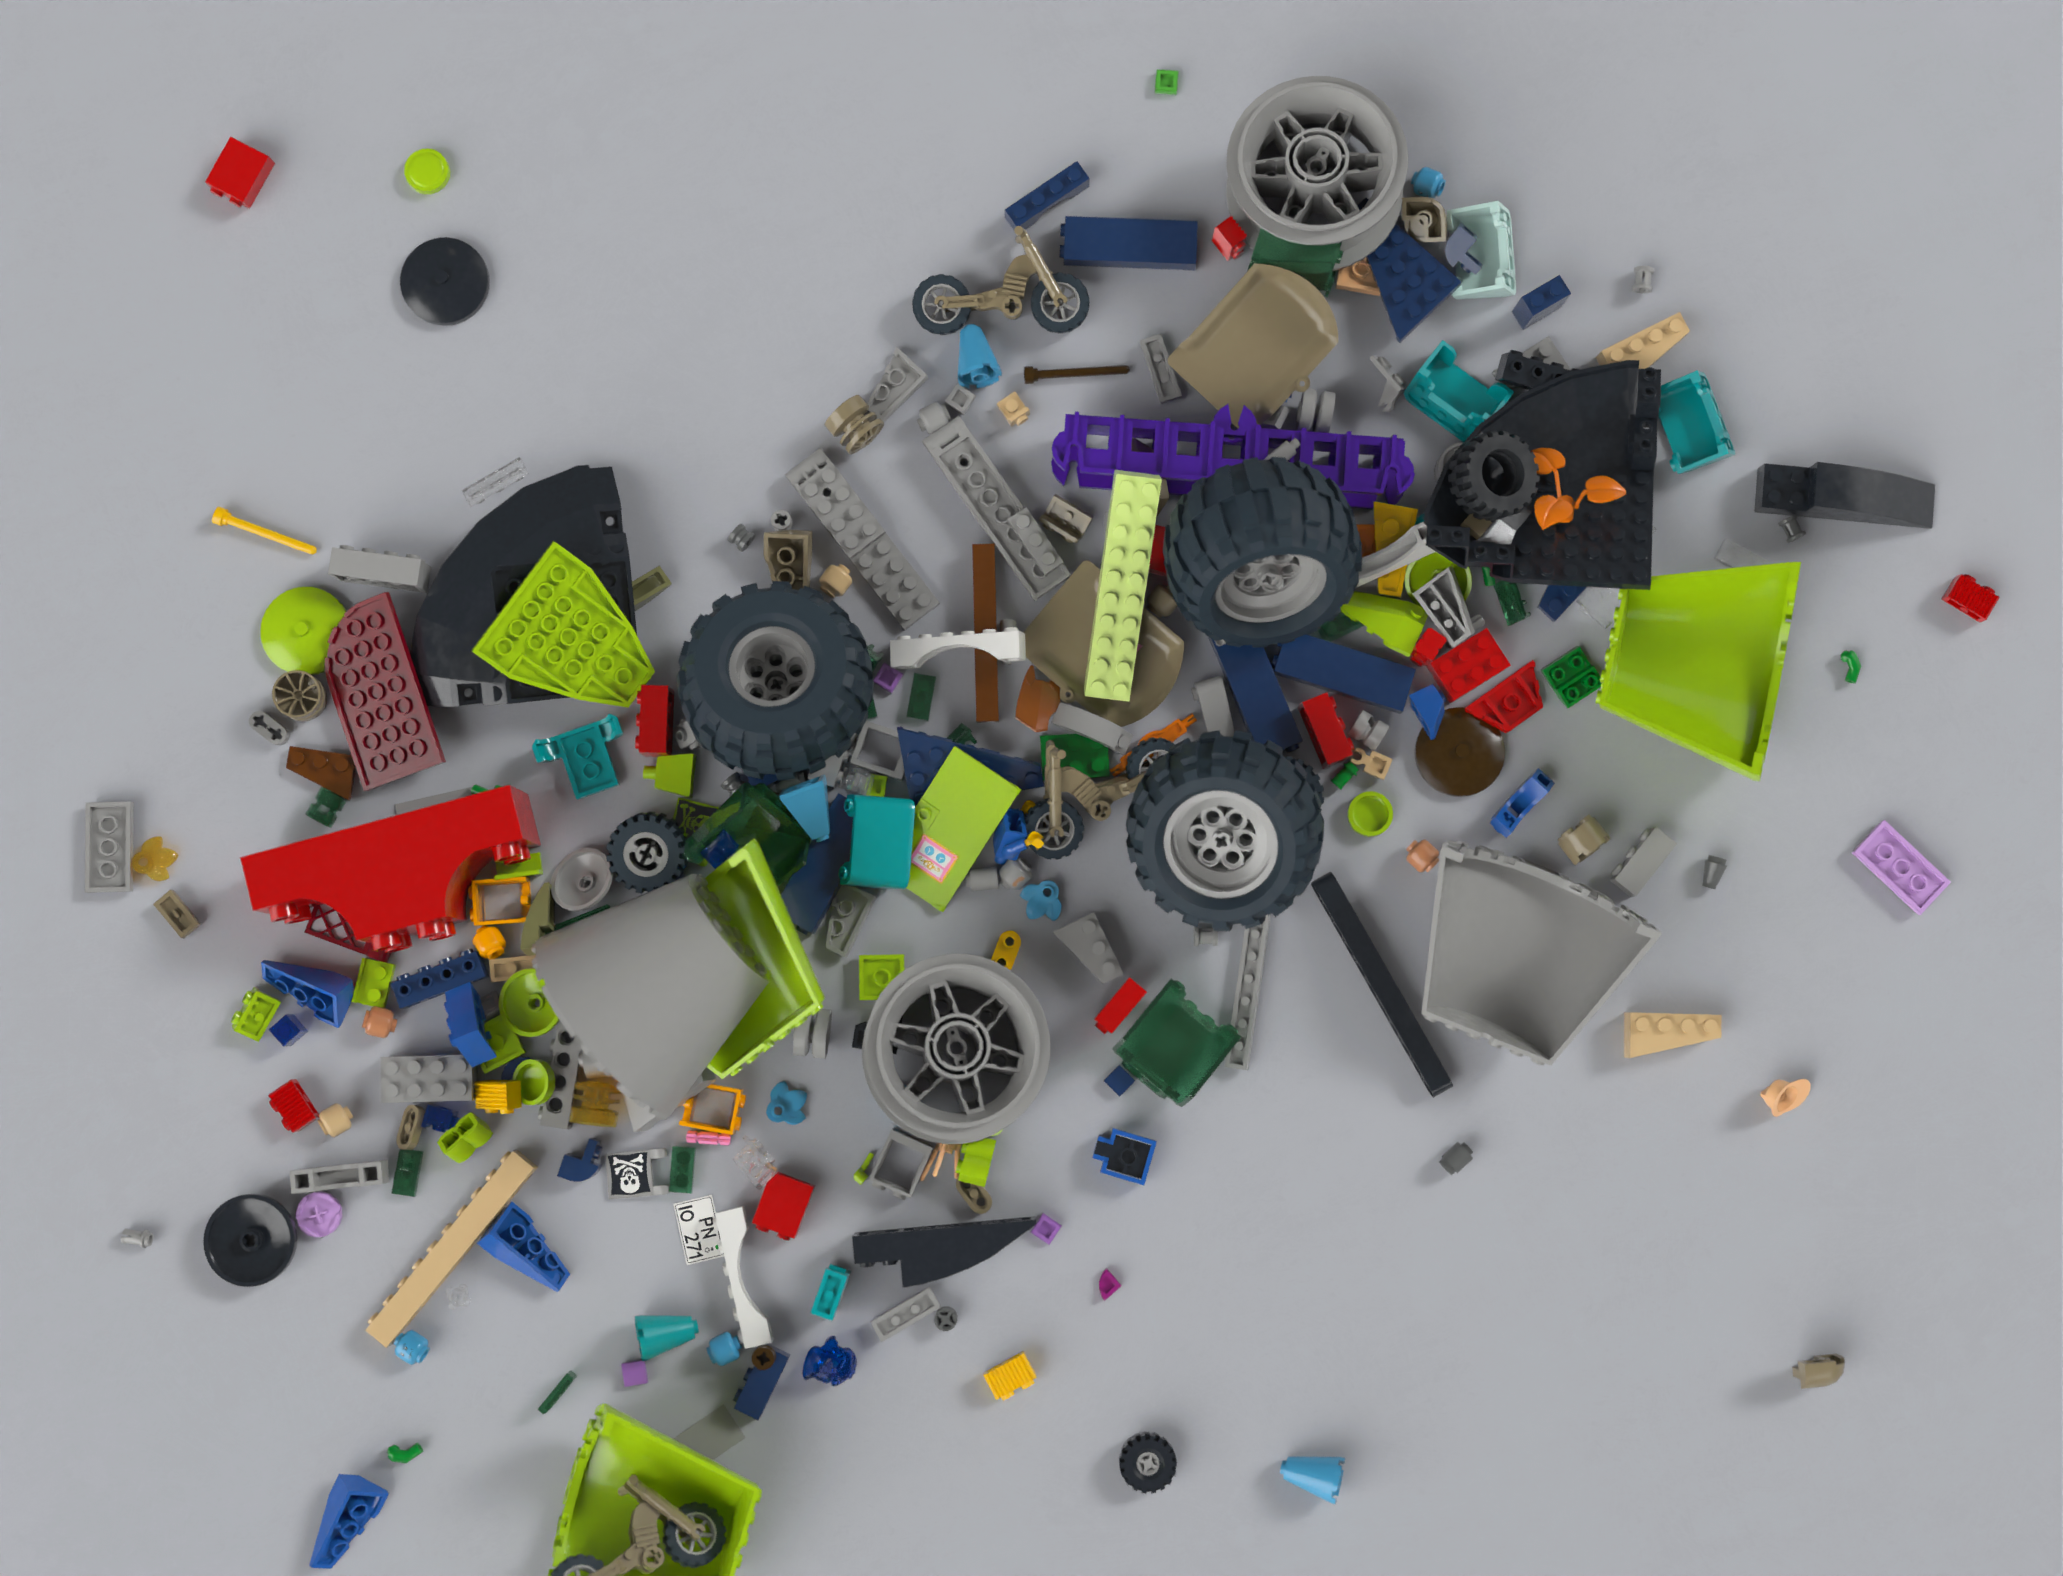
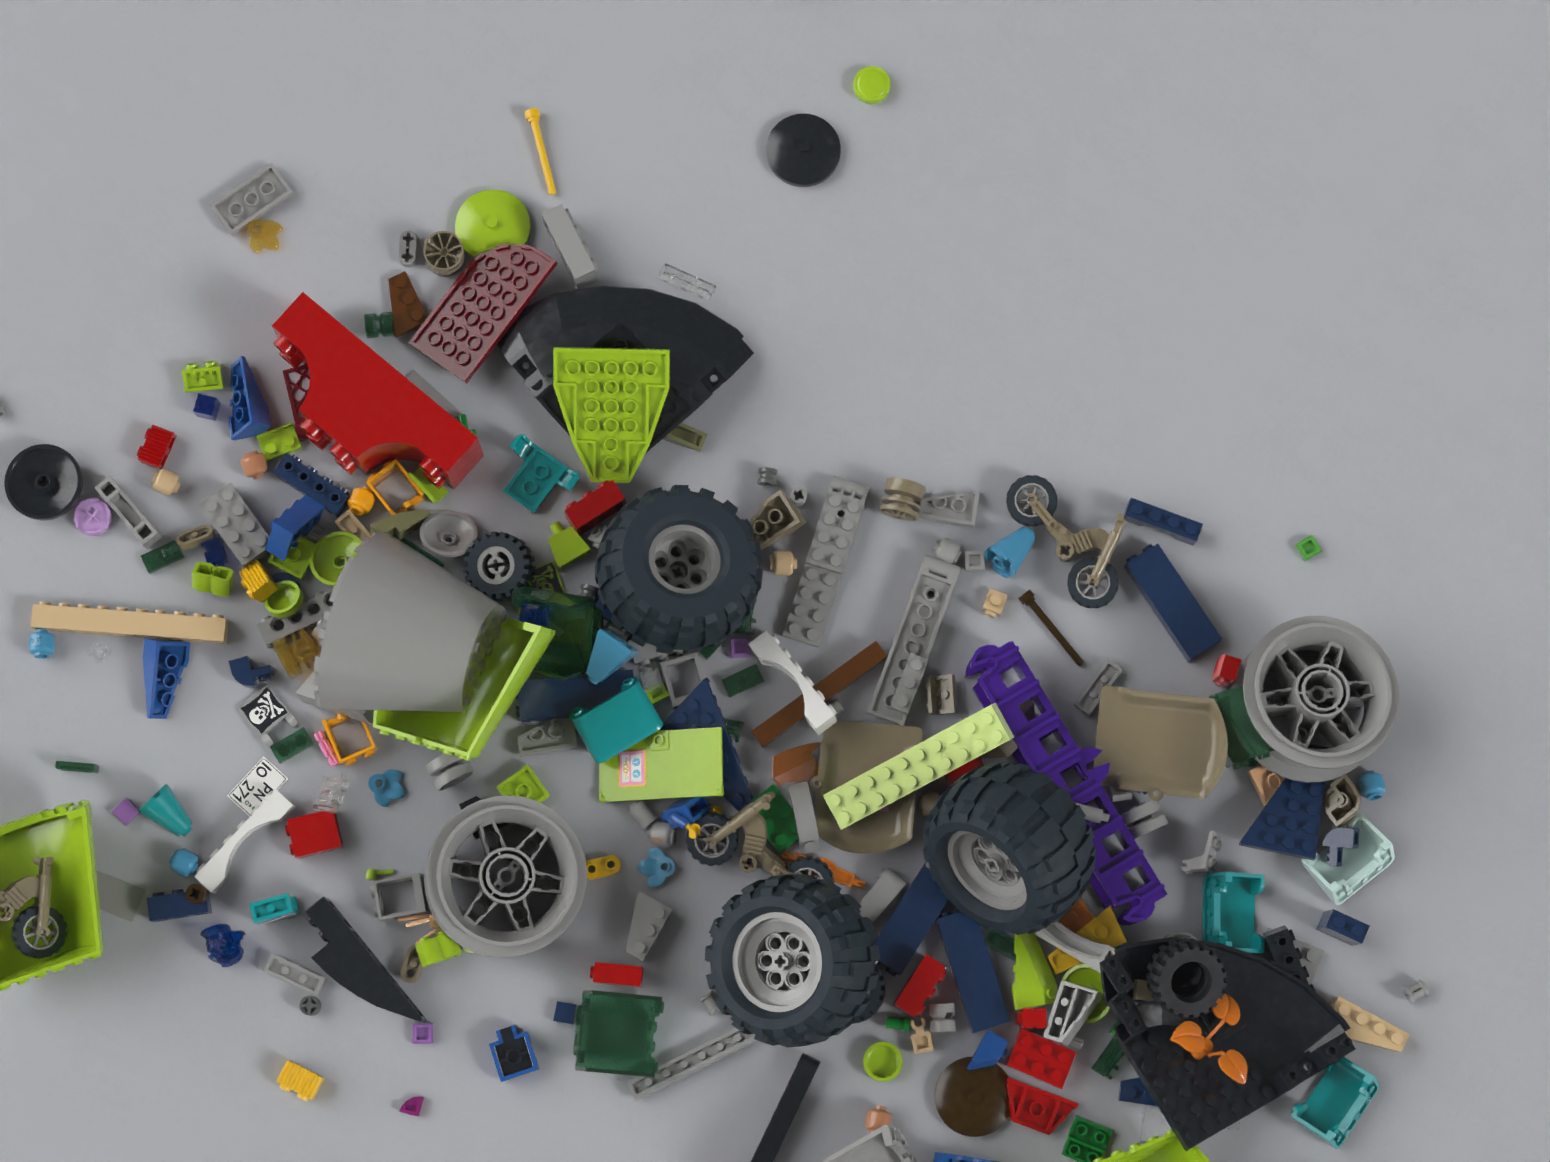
camera: 50 degrees right, 5 degrees down
(177, 914) = (236, 276): dark tan plate -> none

